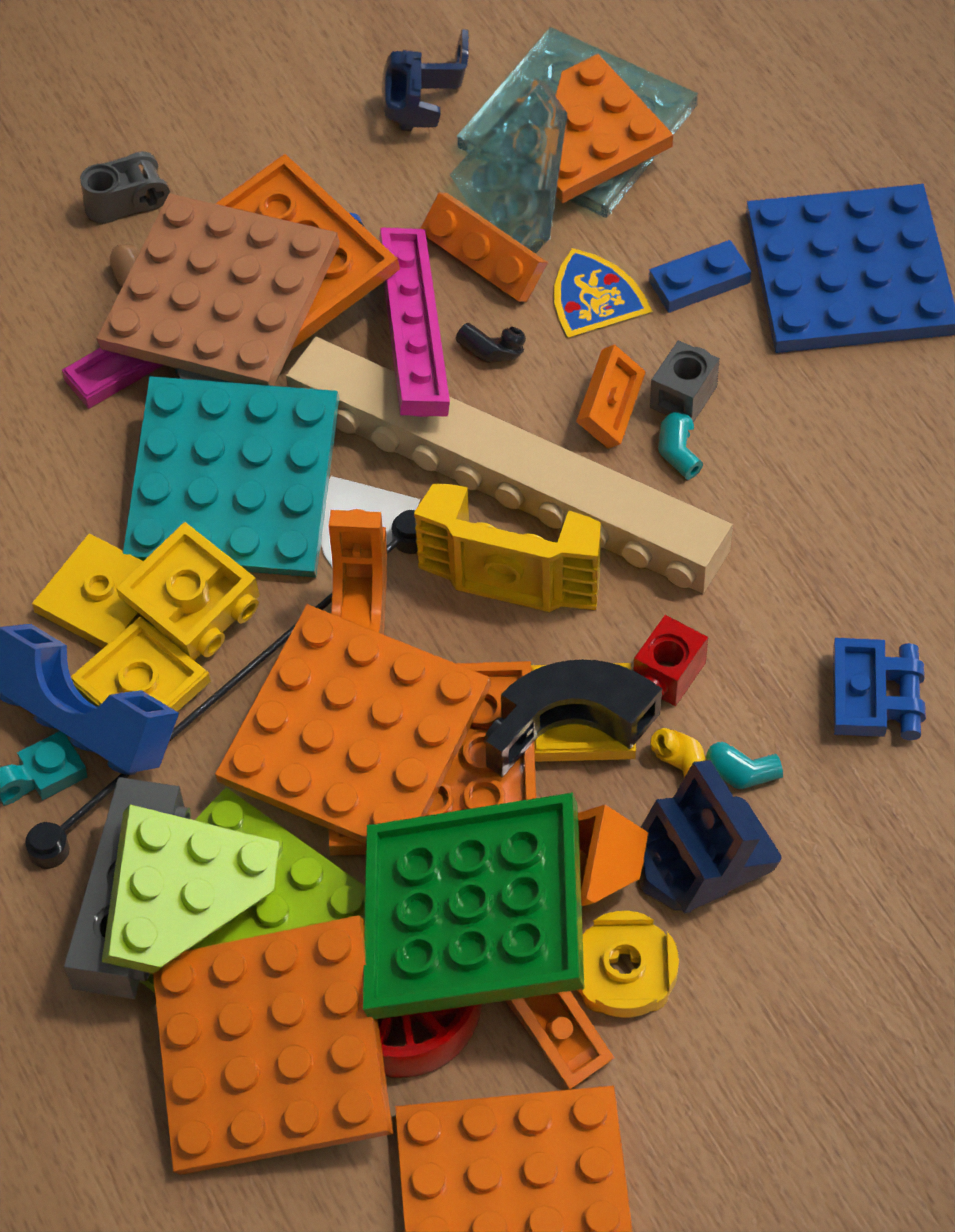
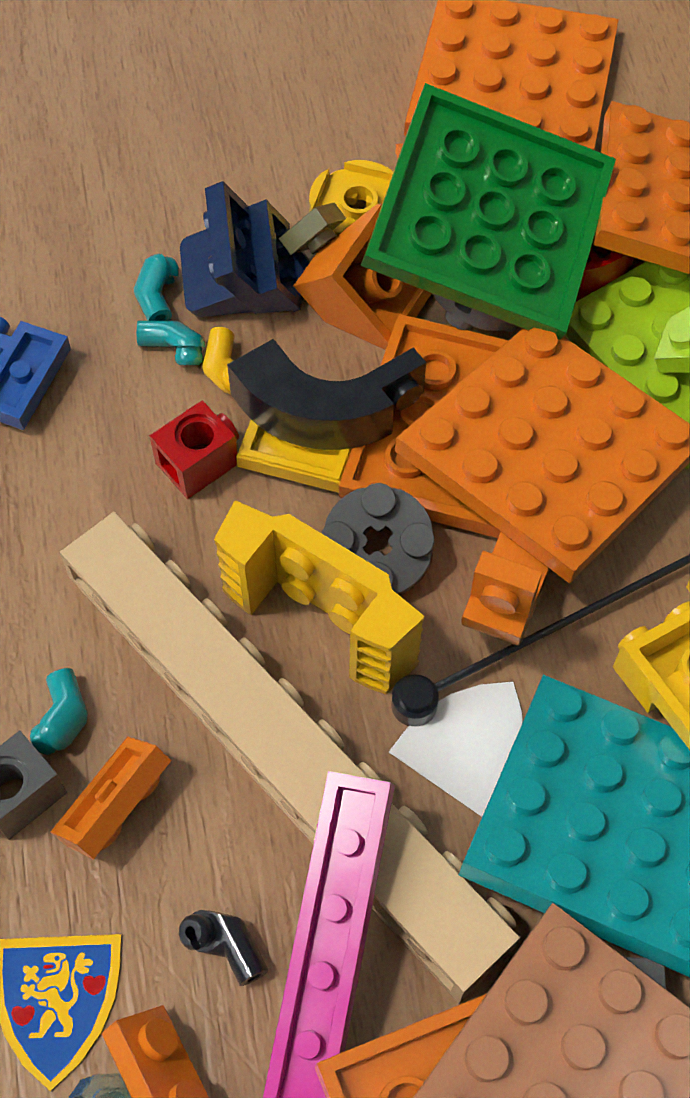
camera: 165 degrees left, 5 degrees up
(500, 622) = (390, 509): none -> dark grey plate
(651, 888) = (313, 230): none -> olive plate
(791, 813) = (153, 275): none -> teal arm

